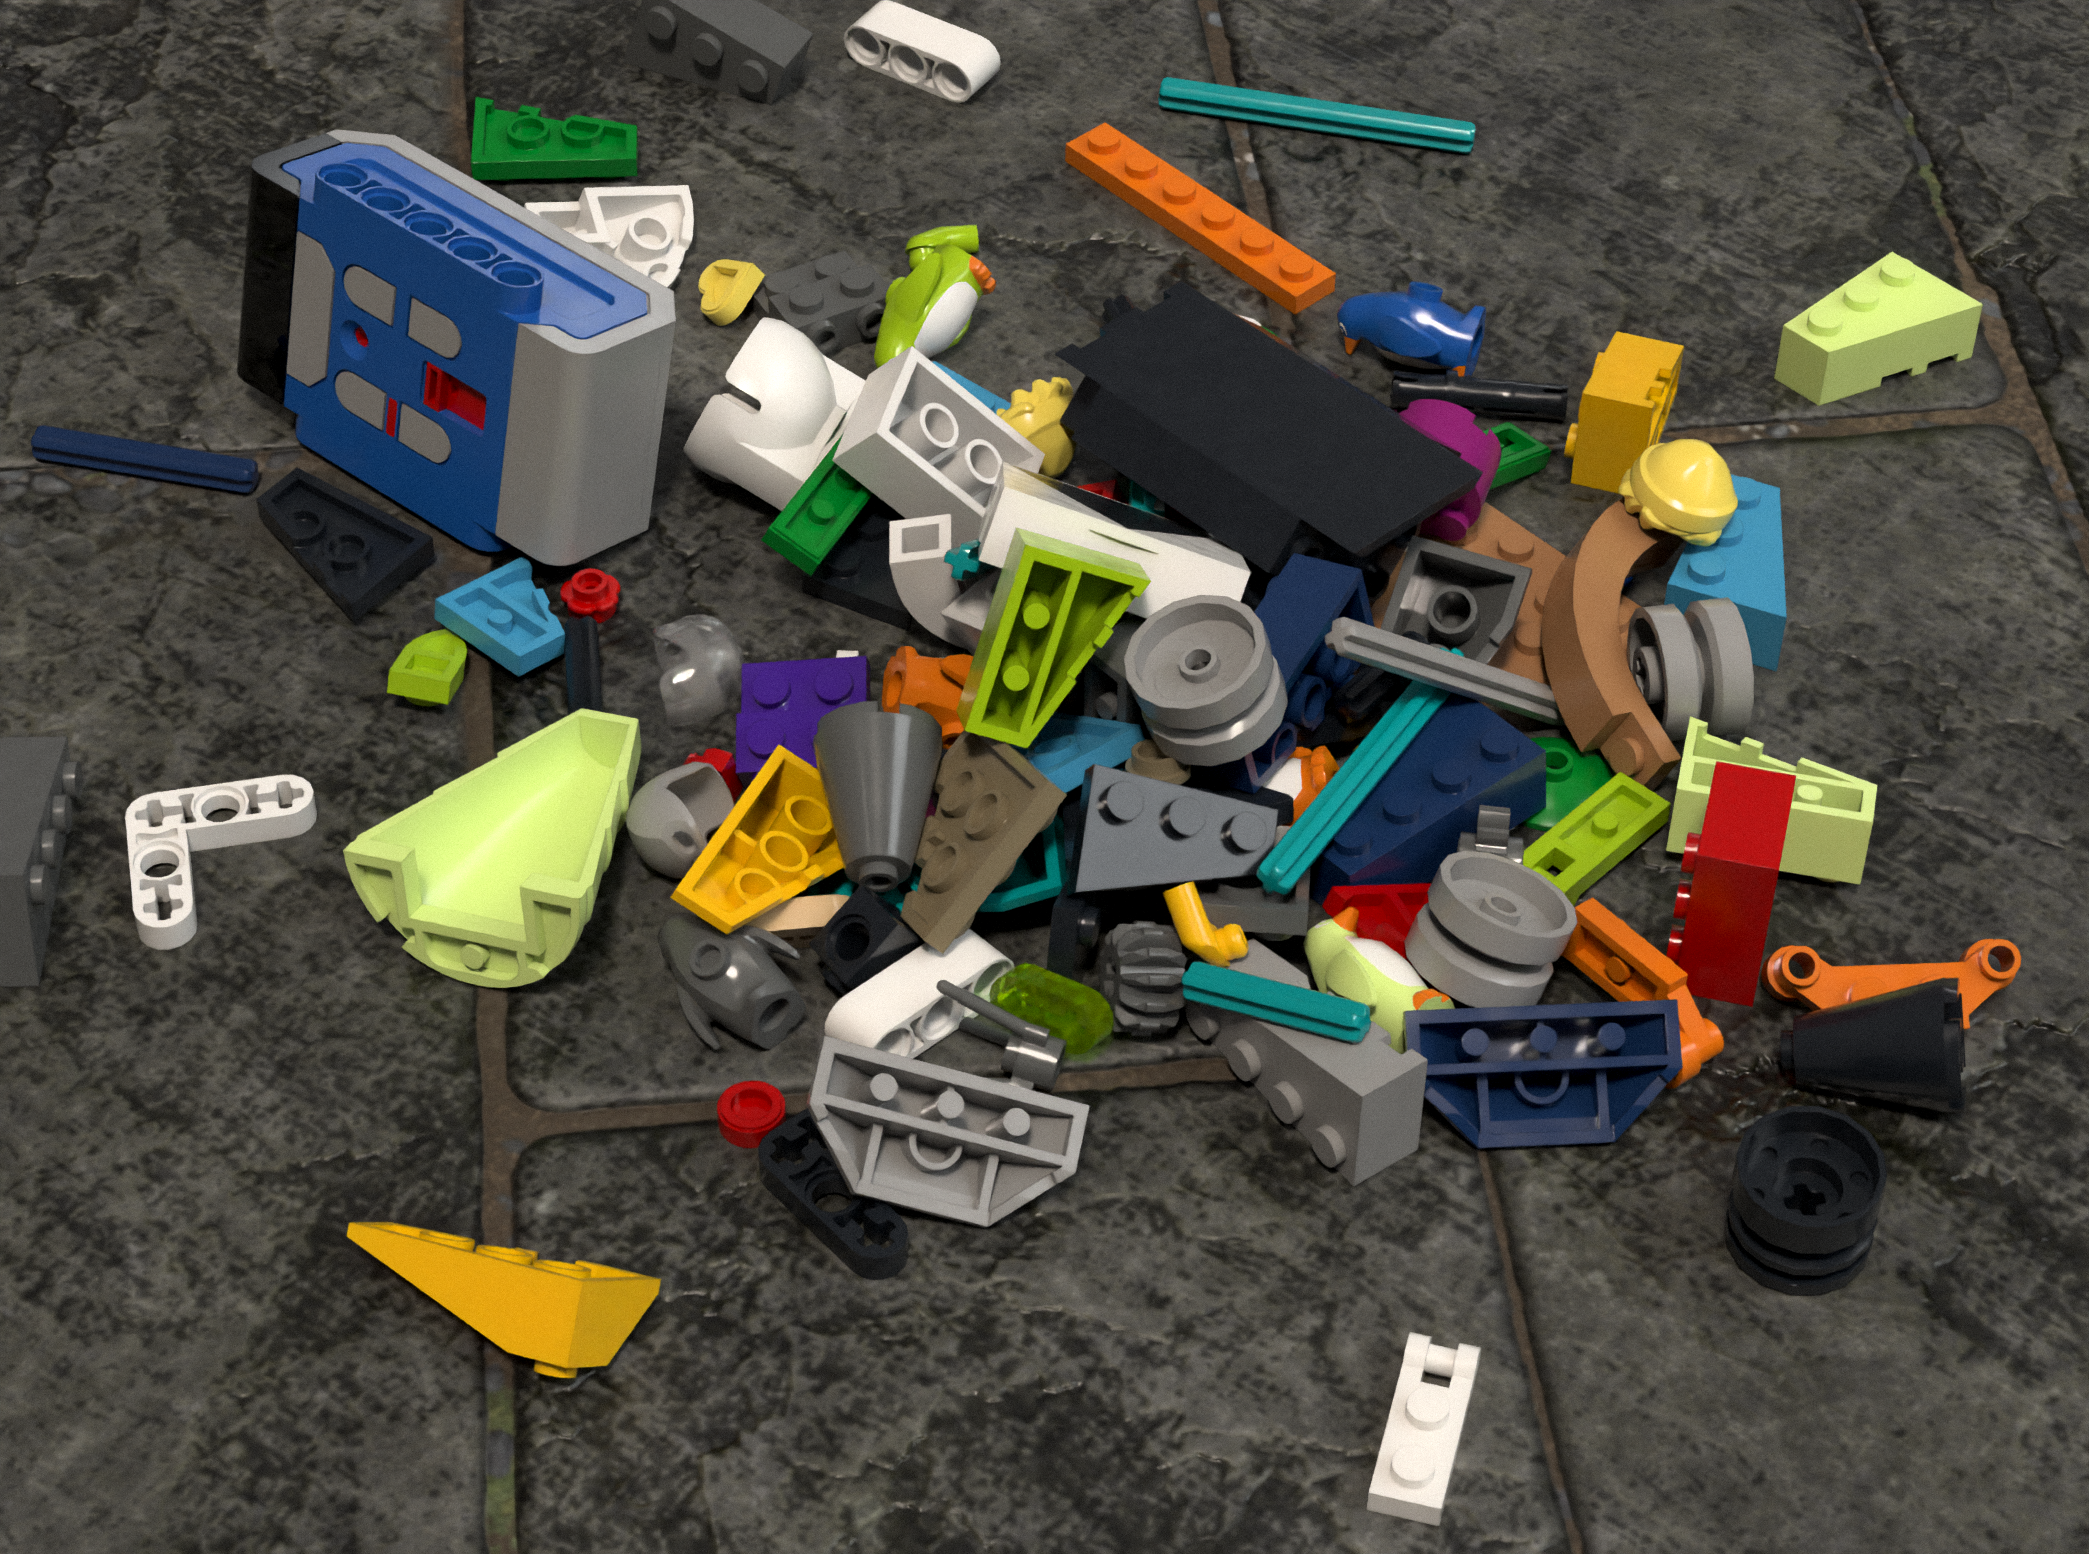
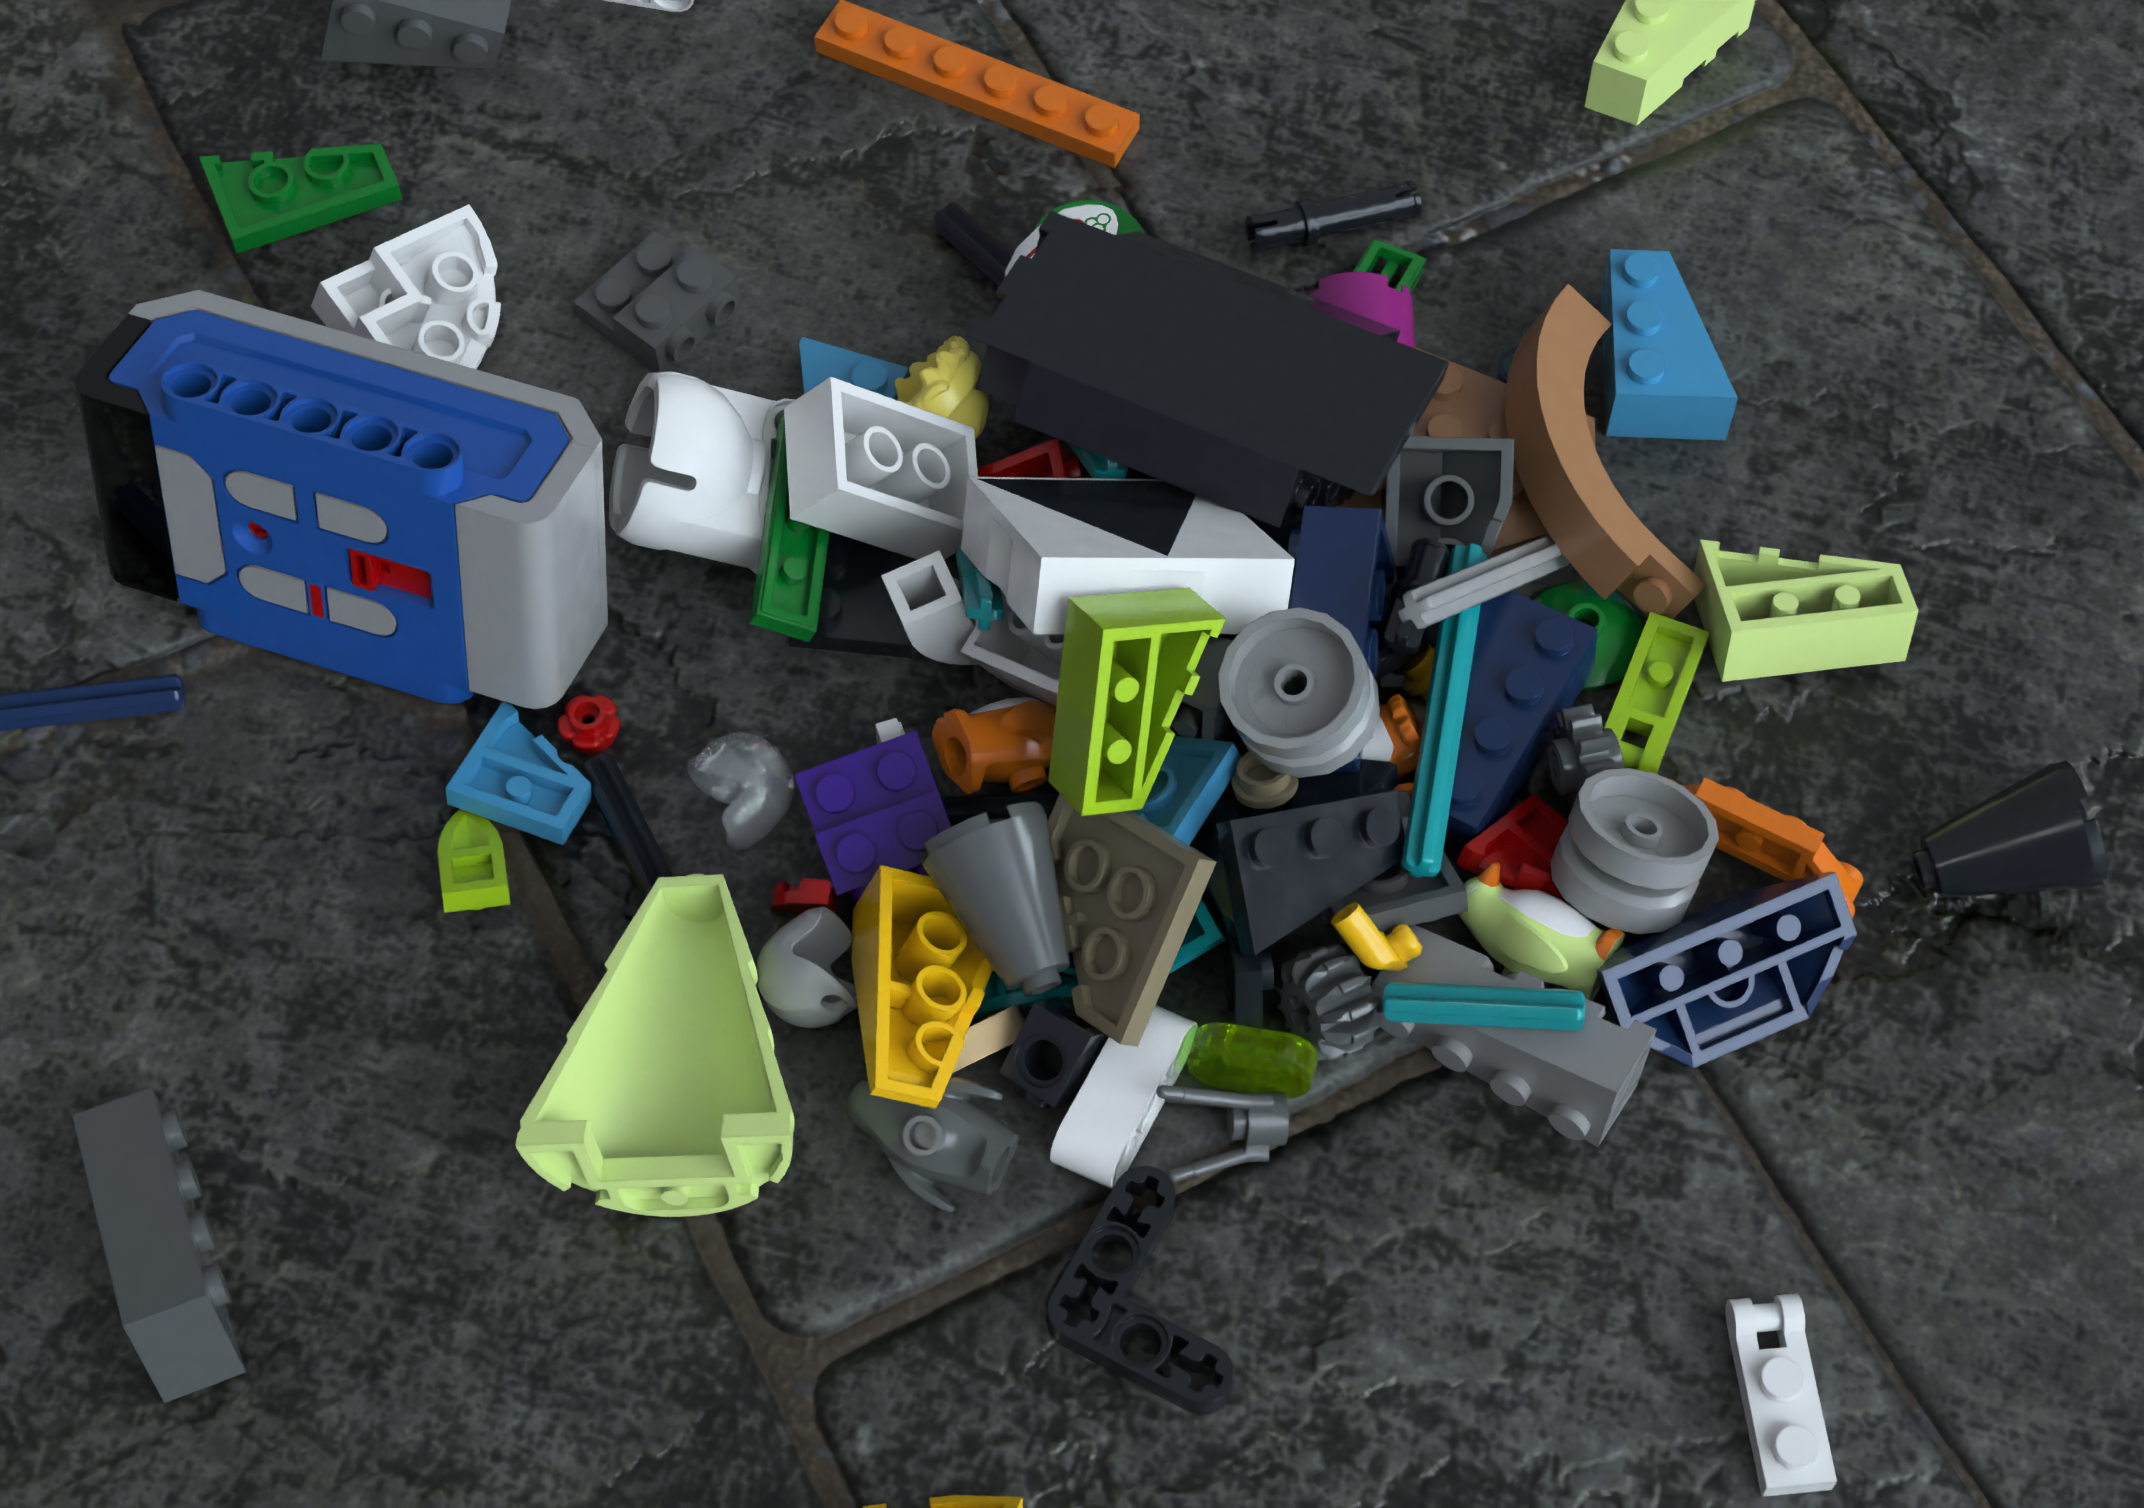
camera: 20 degrees left, 15 degrees up
(176, 840) = (307, 1156): white beam -> none
(342, 540) = (311, 741): black wing -> none
(727, 289) = (560, 314): light yellow tile -> none
(750, 1112) = (1017, 1272): red tile -> none
(923, 244) = (741, 189): lime arm -> none
(932, 304) = (778, 286): lime animal -> none
(939, 1134) = (1227, 1251): light grey wedge -> none
(1415, 328) = (1245, 160): blue animal -> none
(1622, 409) = (1480, 197): yellow wedge -> none
(1681, 490) = (1601, 297): light yellow hair -> none
(1693, 665) = (1680, 478): light grey wheel -> none
(1732, 883) = (1833, 722): red wedge -> none
(1805, 1200) = (2030, 1007): black wheel -> none
(1835, 985) = (2053, 729): orange plate -> none

